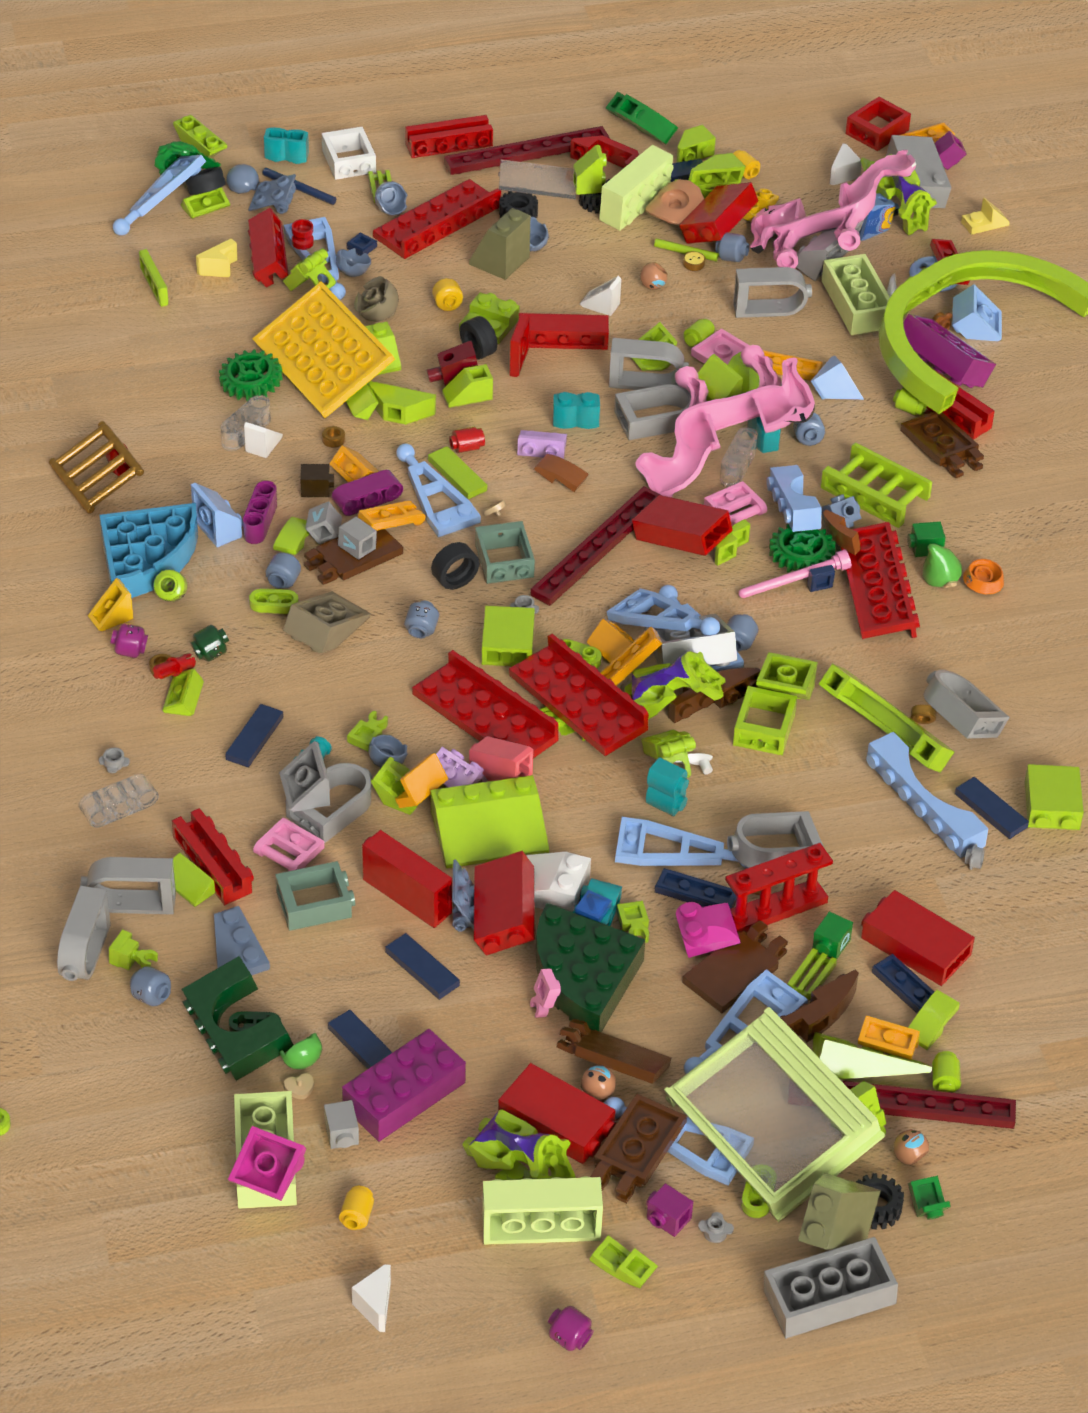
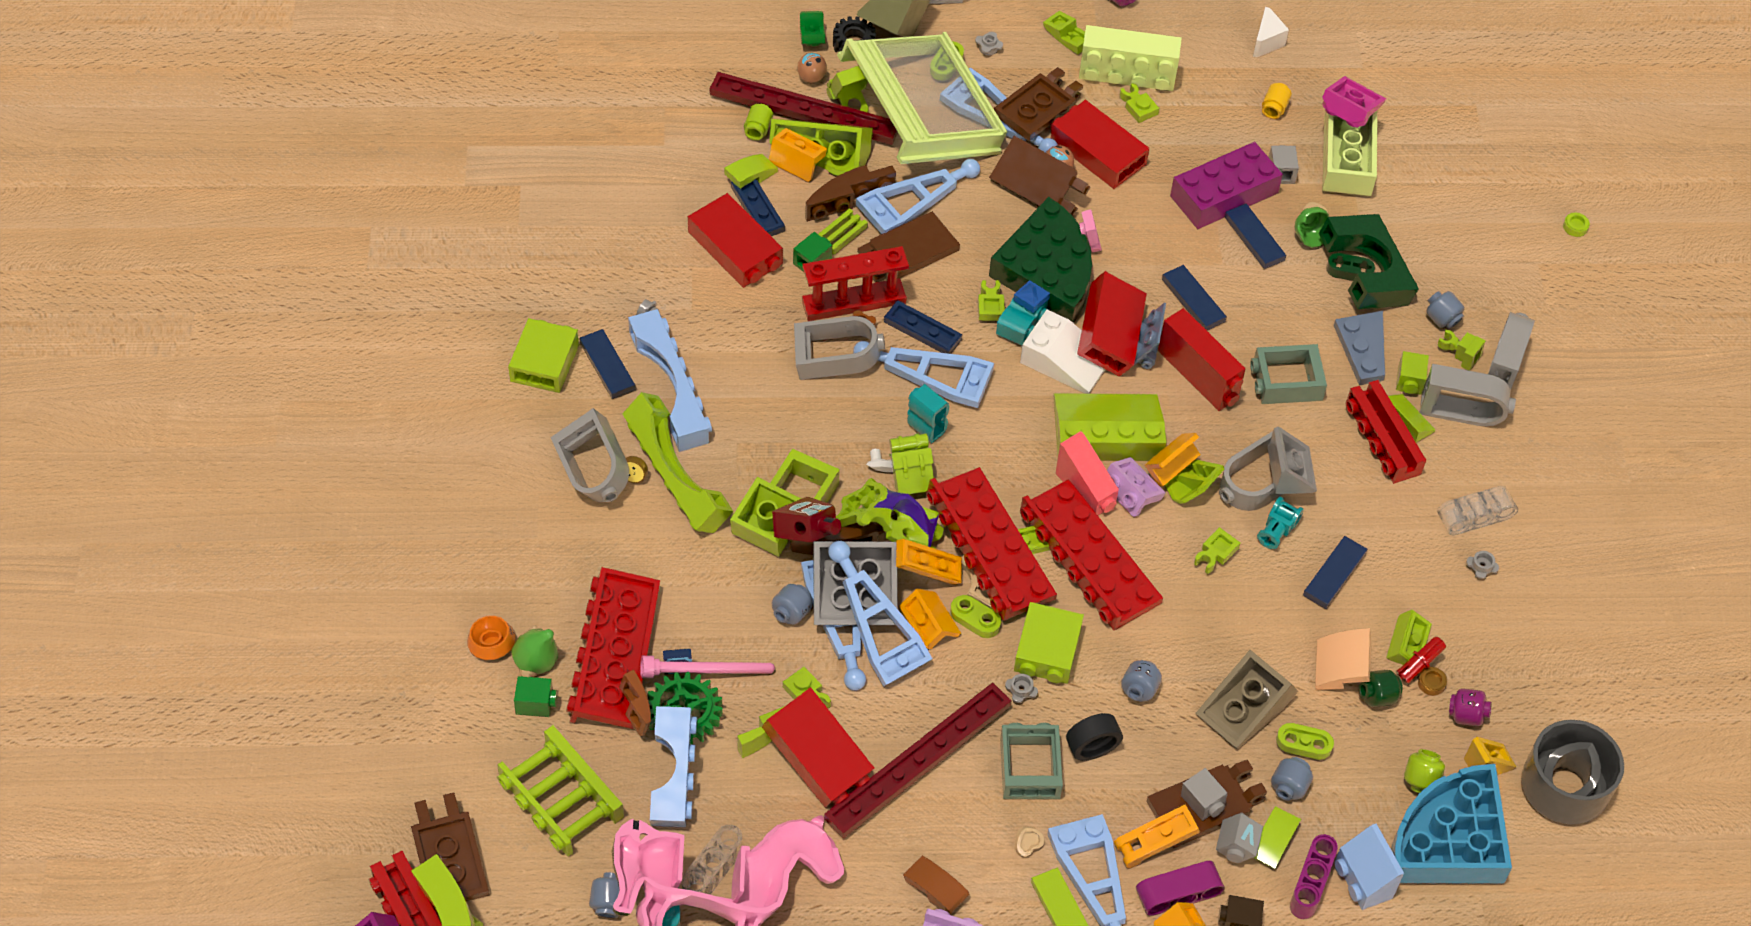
camera: 170 degrees left, 10 degrees up
(43, 590) = (1588, 754): none -> dark grey piece
(185, 916) = (1412, 373): none -> lime brick
(244, 654) = (1343, 659): none -> light nougat slope
(291, 839) = (1299, 429): bright pink plate -> none
(384, 747) = (1200, 514): sand blue hair -> none
(512, 1139) = (1151, 113): lime hips -> none
(669, 1209) = (1023, 56): magenta brick -> none
(706, 927) = (928, 280): dark pink slope -> none
(708, 584) = (803, 680): none -> lime plate
(736, 498) = (741, 801): bright pink plate -> none
(746, 652) = (805, 520): none -> dark red torso
(844, 507) = (621, 746): sand blue brick -> none

